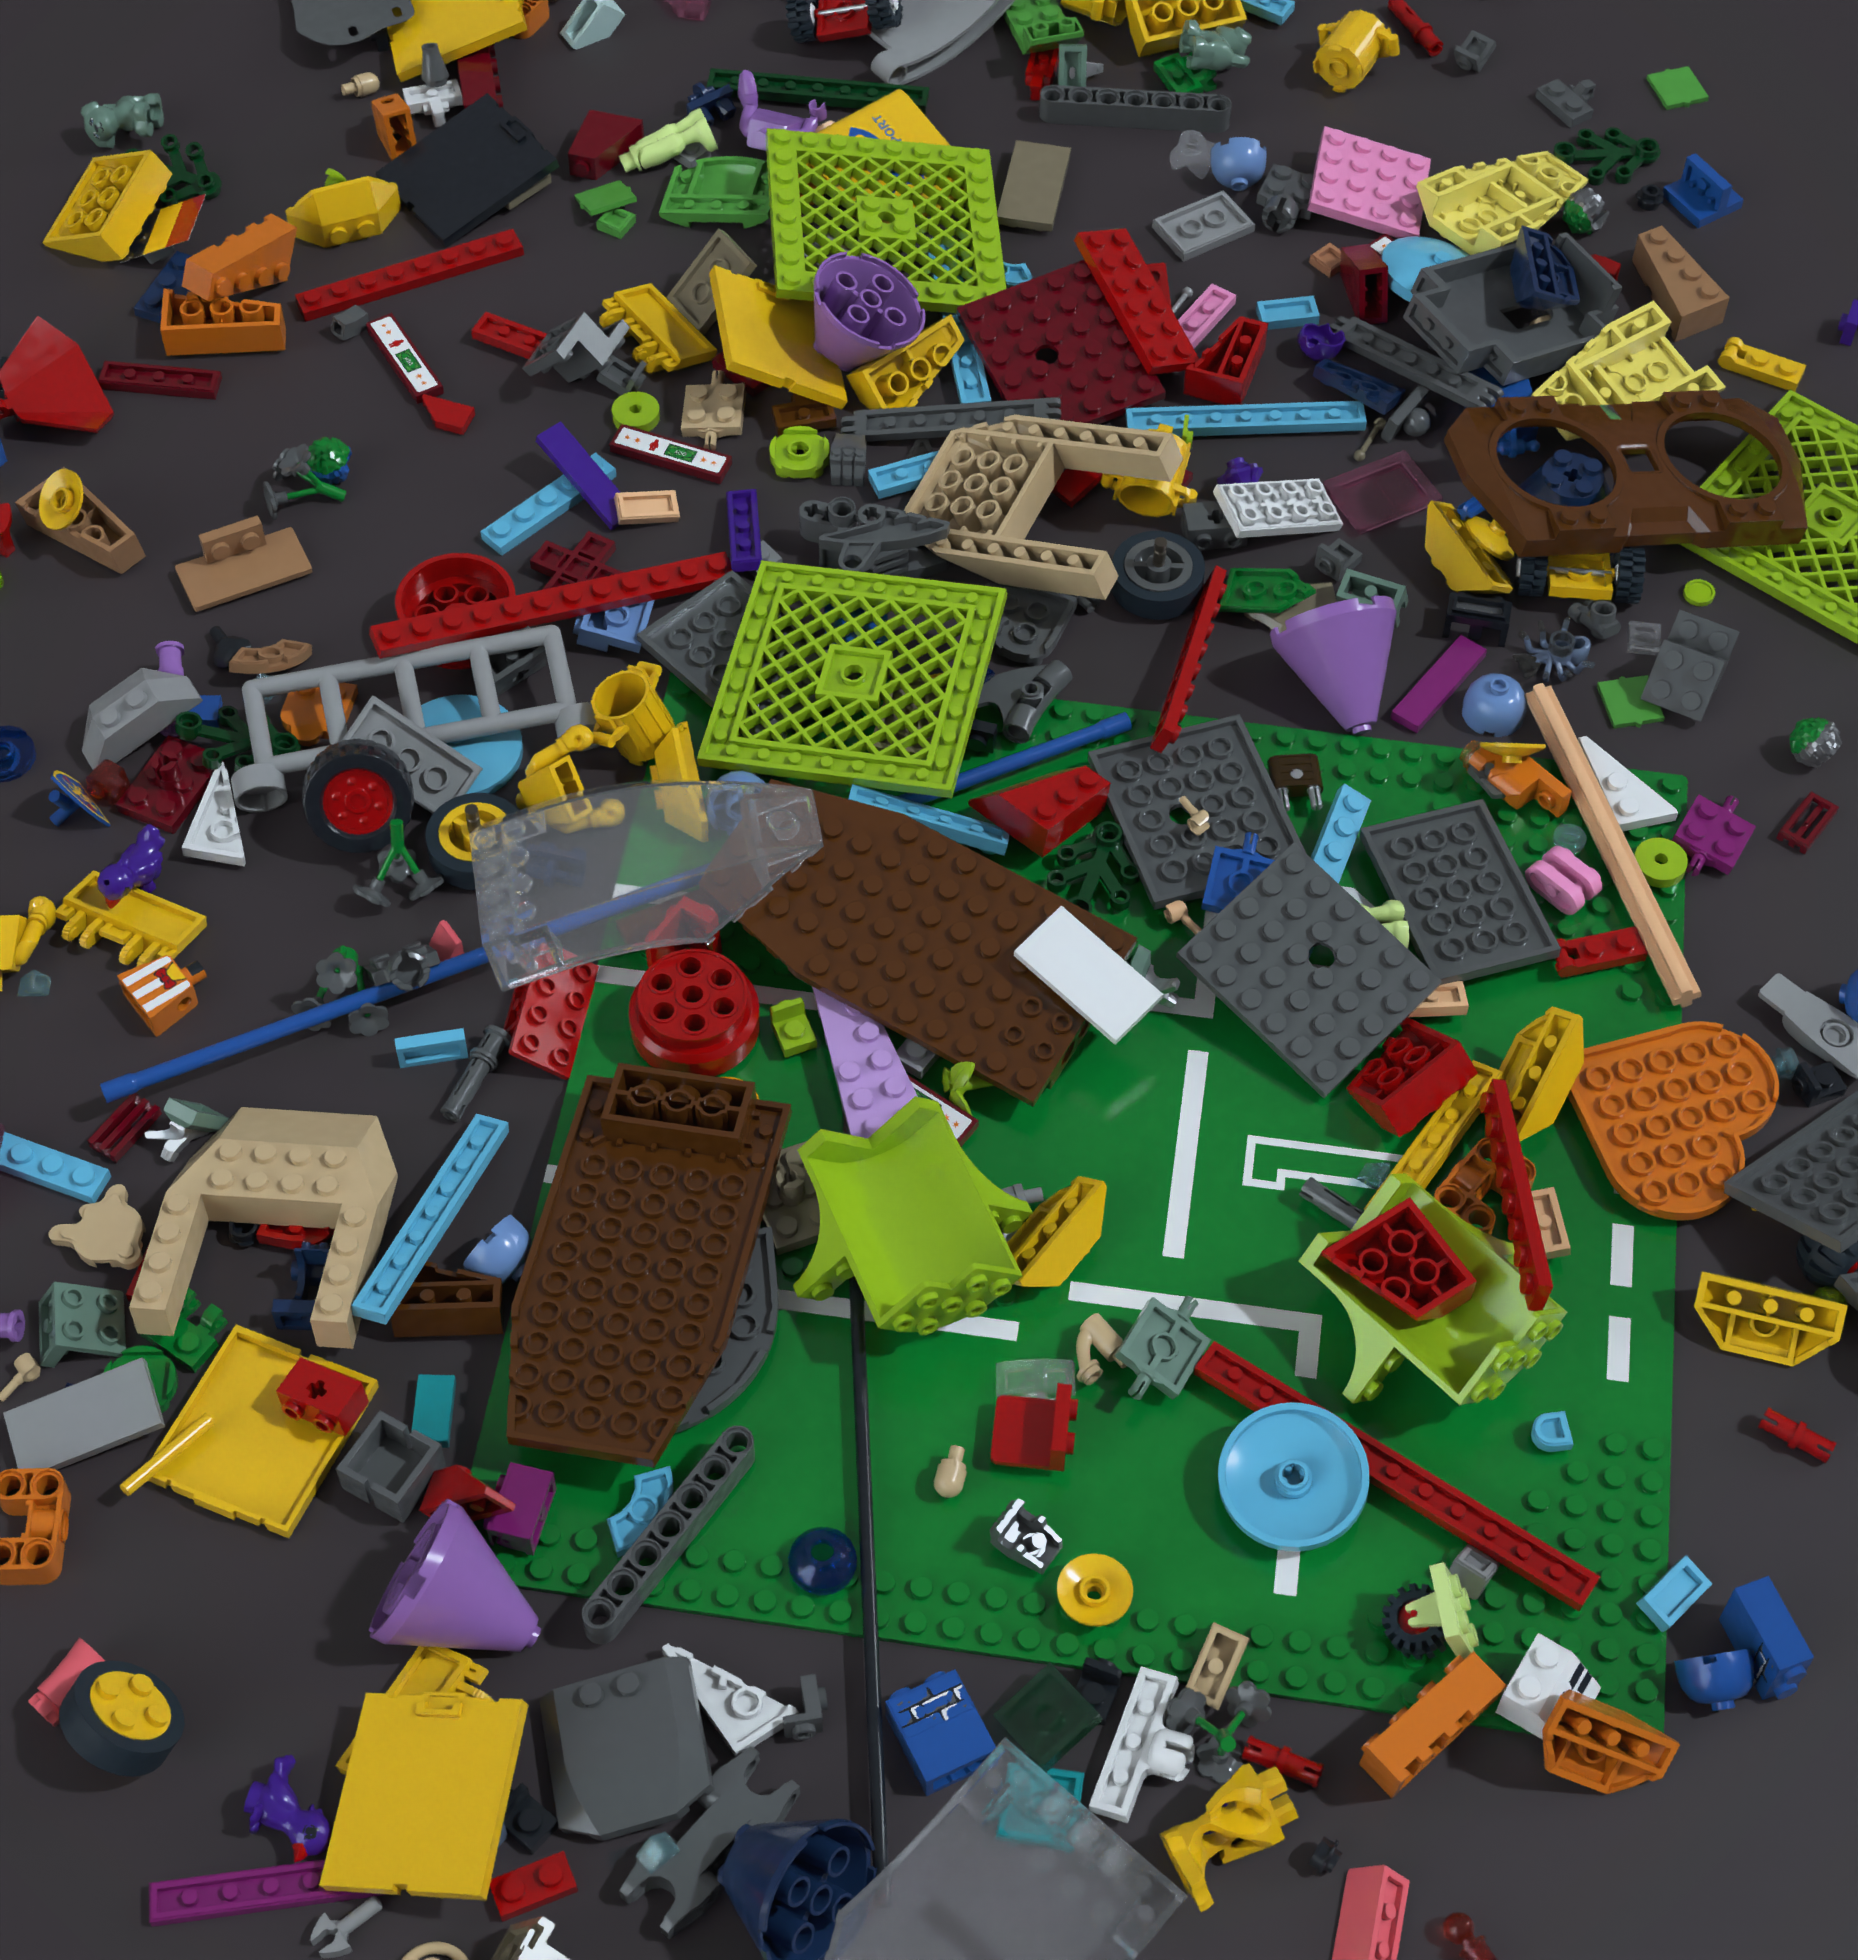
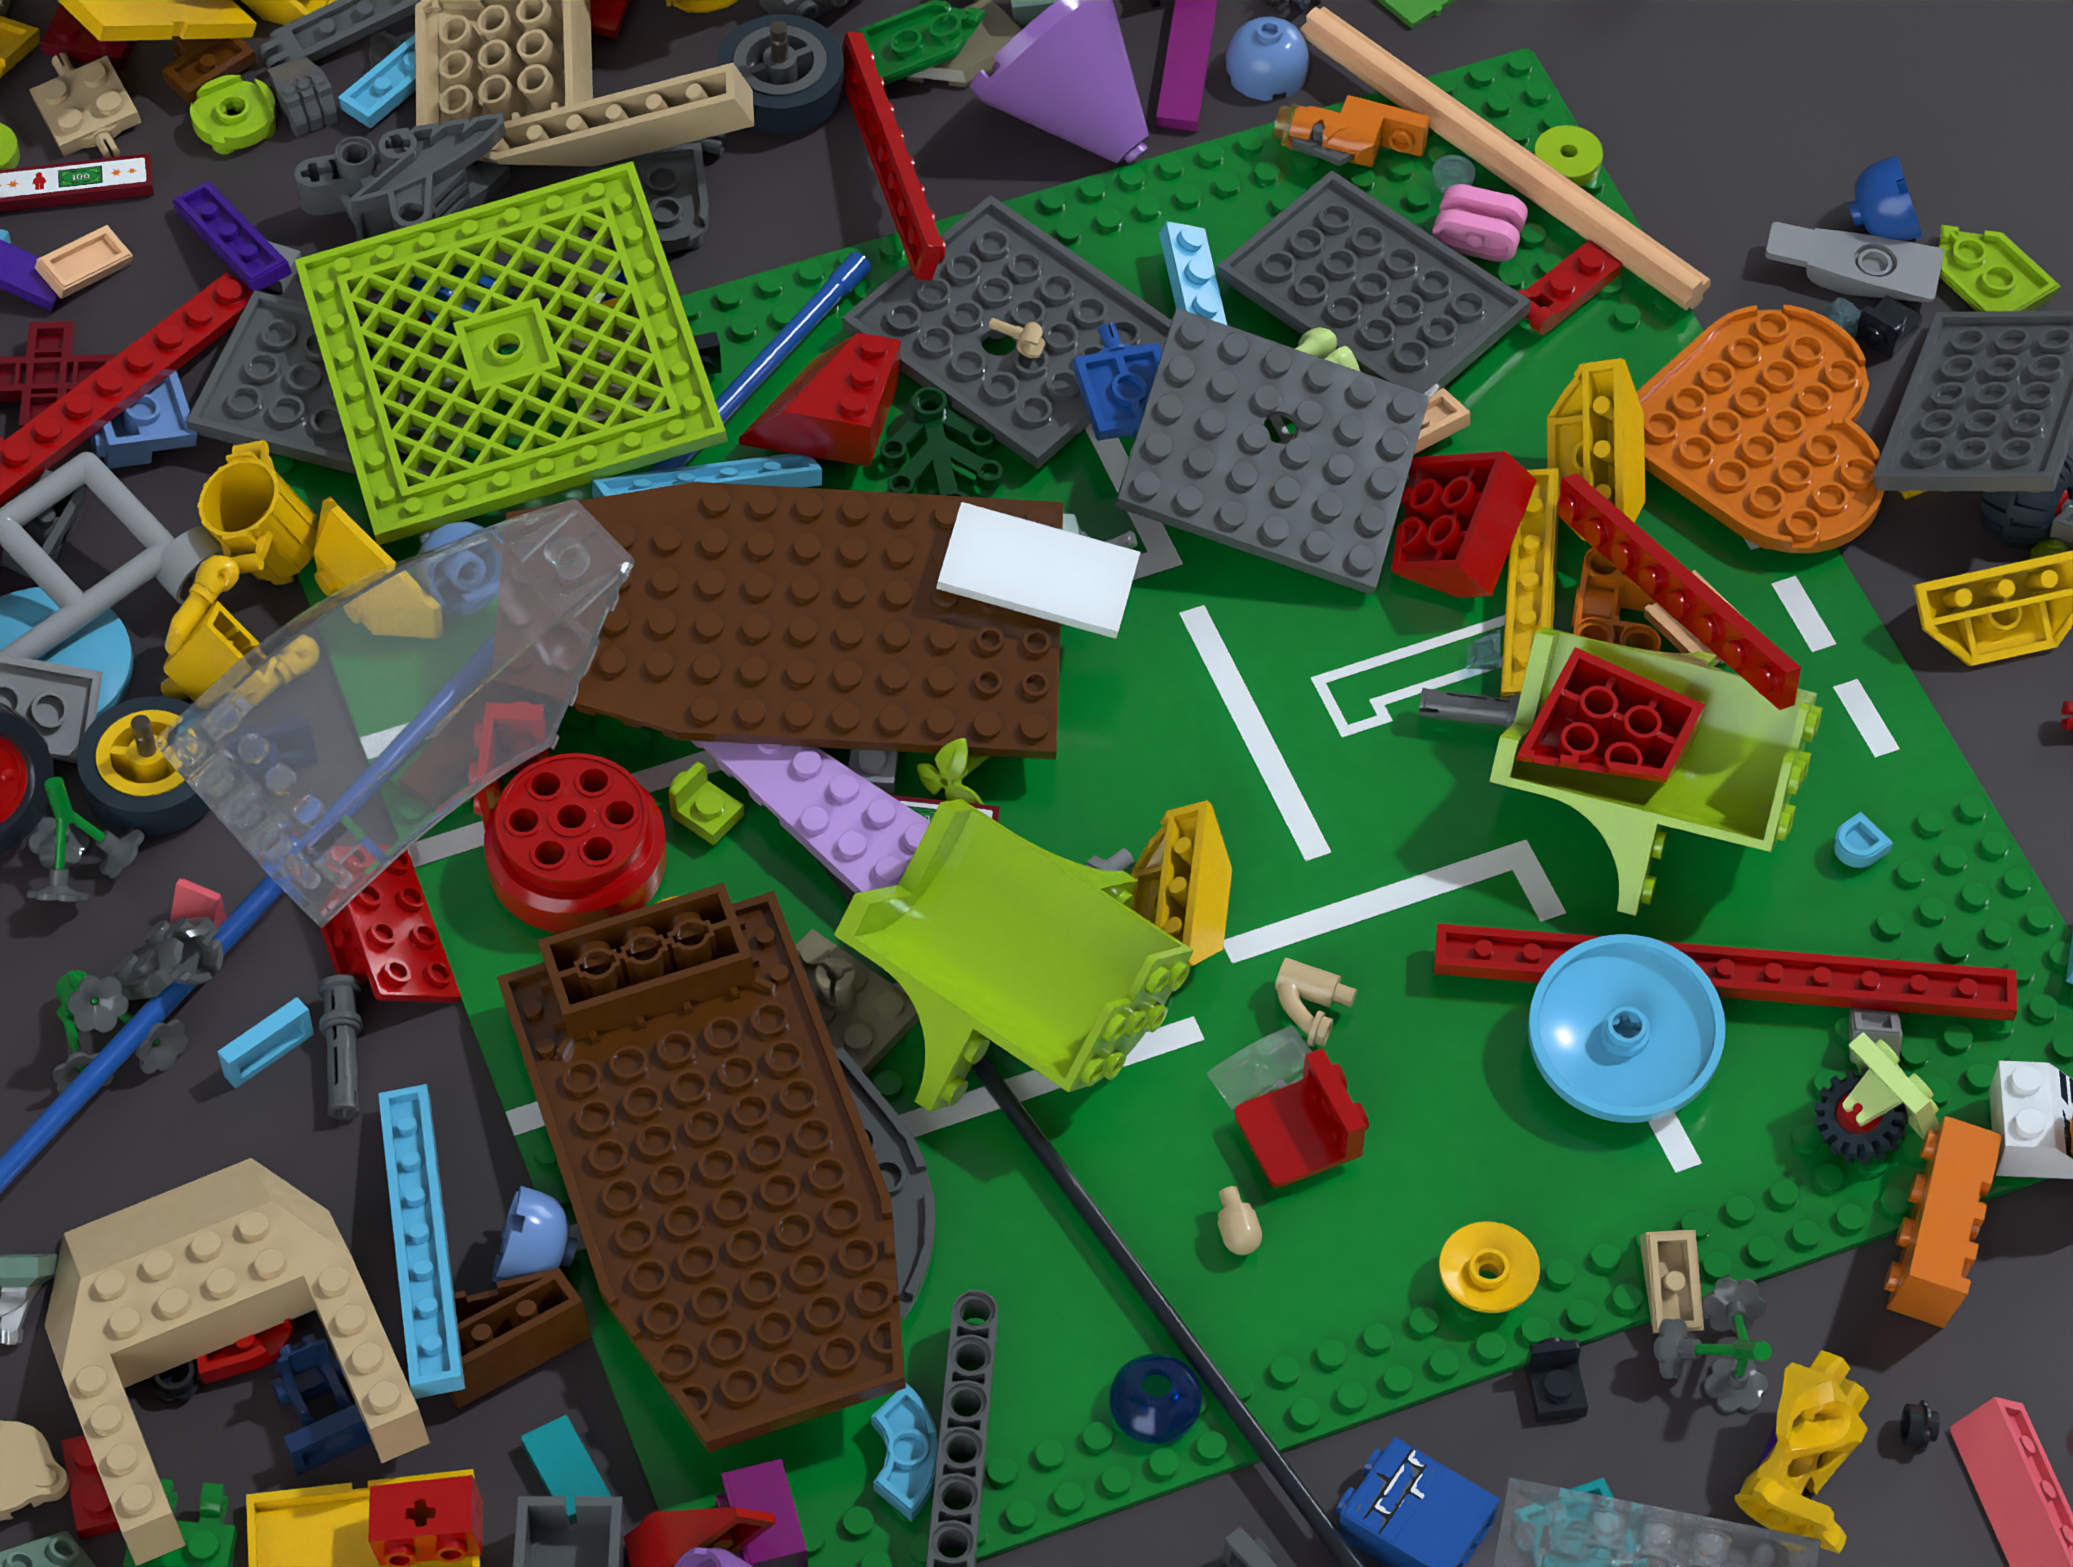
camera: 30 degrees left, 0 degrees up
(1024, 696) = (722, 285): dark grey pin -> none
(1025, 1537) = (1372, 1250): dark grey hand -> none
(1048, 1717) = (1527, 1433): clear green plate -> none
(1142, 1747) = (1650, 1411): white plate -> none
(1162, 1347) = (1386, 959): sand green plate -> none
(1178, 911) = (1070, 456): light nougat hand -> none
(1285, 1761) = (1806, 1345): red pin -> none
(1296, 777) = (1103, 239): dark brown piece -> none
(1512, 751) = (1340, 98): yellow dish -> none
(1629, 797) = (1494, 97): white wing -> none
(1713, 835) = (1603, 99): magenta plate -> none
(1796, 838) = (1689, 64): dark red tile -> none

